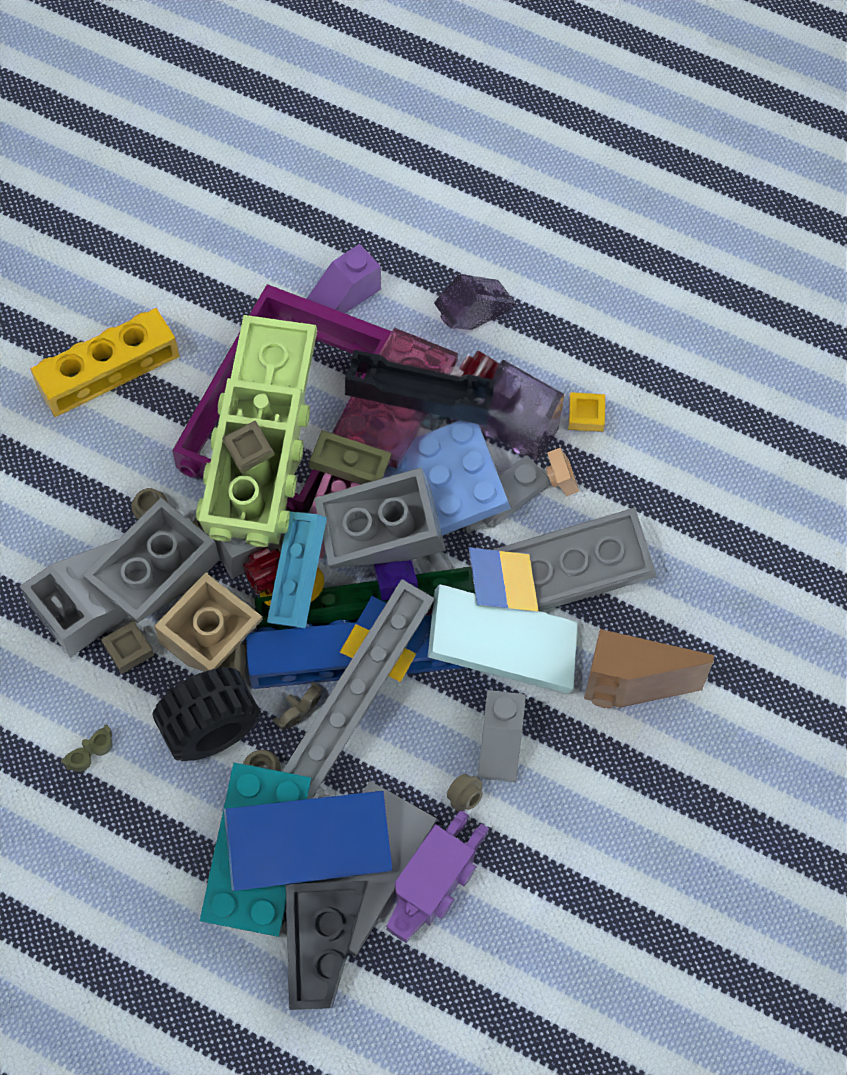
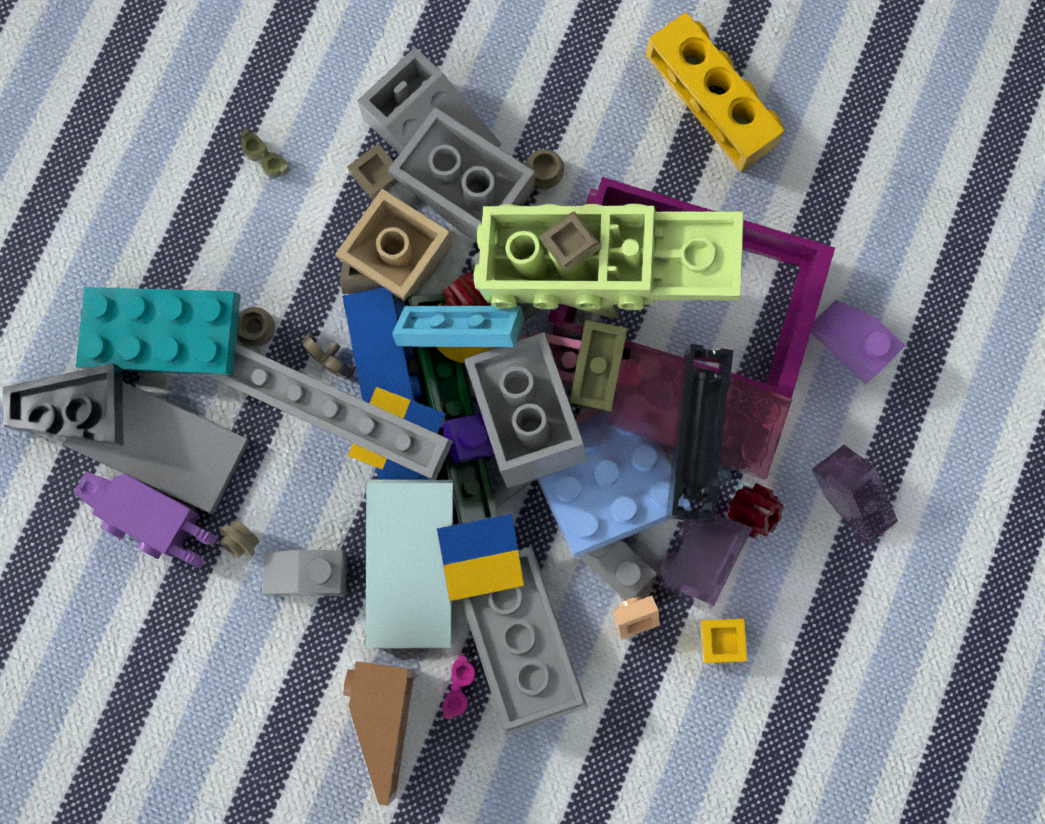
camera: 85 degrees right, 15 degrees up
(206, 714) = (290, 257): black tyre -> none
(307, 840) = (158, 378): blue tile -> none
(602, 618) = (462, 676): none -> dark pink piece

